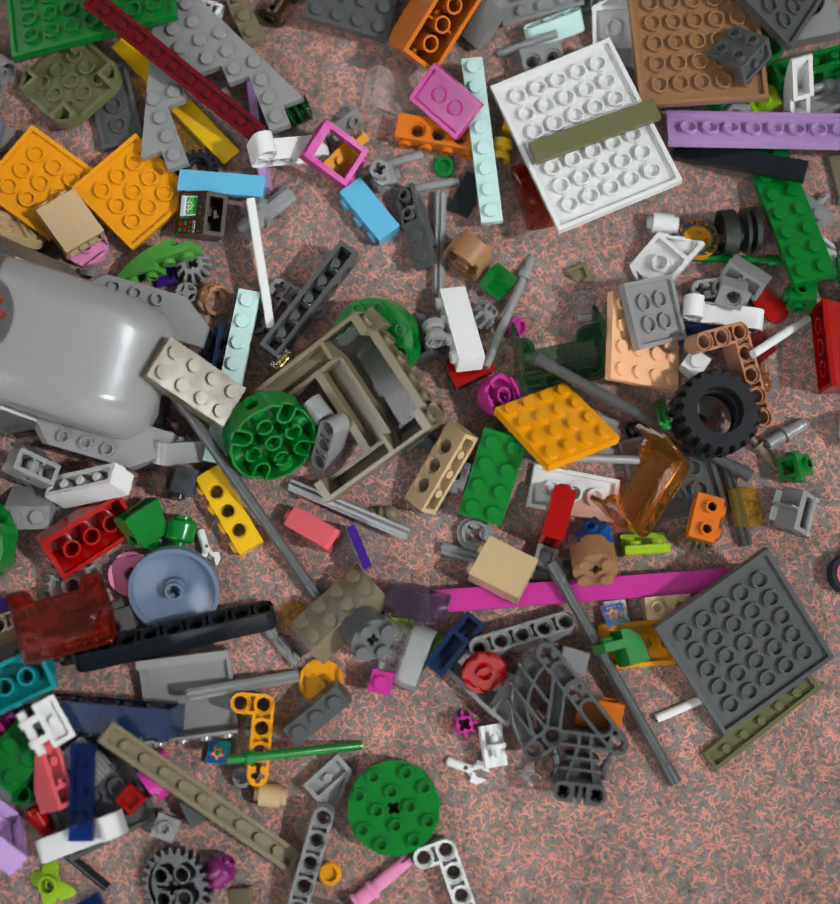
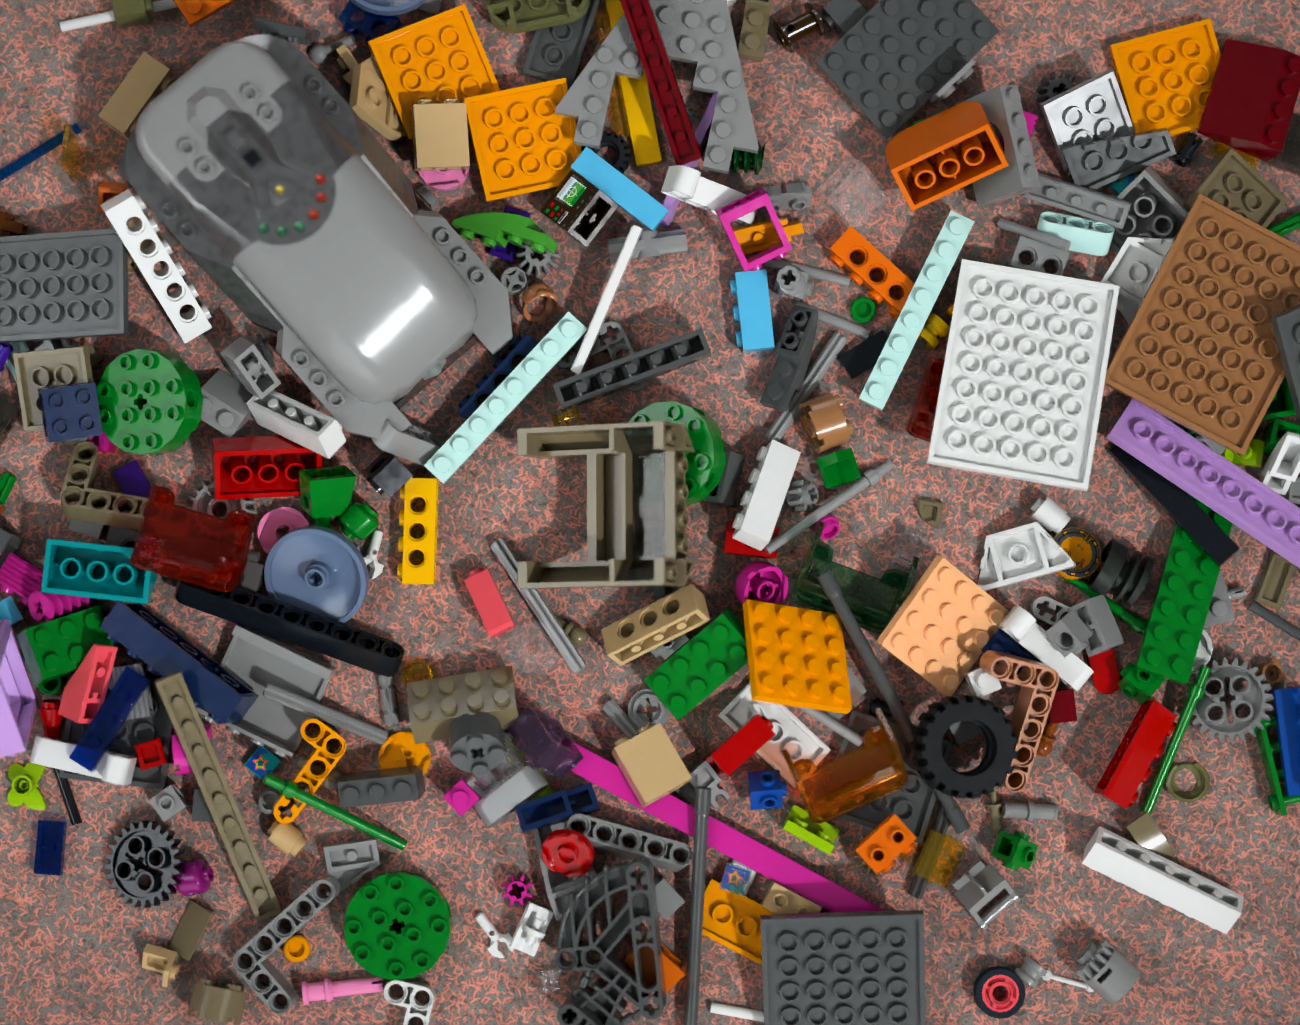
camera: 35 degrees right, 5 degrees up
(52, 721) = (123, 634): white plate -> none
(193, 382) = (460, 389): brick -> none
(268, 435) = (503, 483): green brick -> none
(308, 583) = (437, 409): dark grey piece -> none
(318, 408) = (570, 491): light grey beam -> none
(330, 441) = (561, 528): light grey beam -> none
(358, 545) = (523, 651): dark purple tile -> none
(434, 332) = (736, 482): light grey wheel -> none
(446, 101) = (904, 247): dark pink plate -> none
(594, 131) = (1033, 379): olive tile -> none
(594, 560) = (746, 814): medium nougat brick -> none
(626, 644) = (725, 918): green brick -> none
(652, 312) = (970, 603): light grey plate -> none
(662, 415) = (913, 712): green axle -> none
(742, 51) = (1243, 391): dark grey bracket -> none
(780, 336) = (1089, 709): white bar -> none

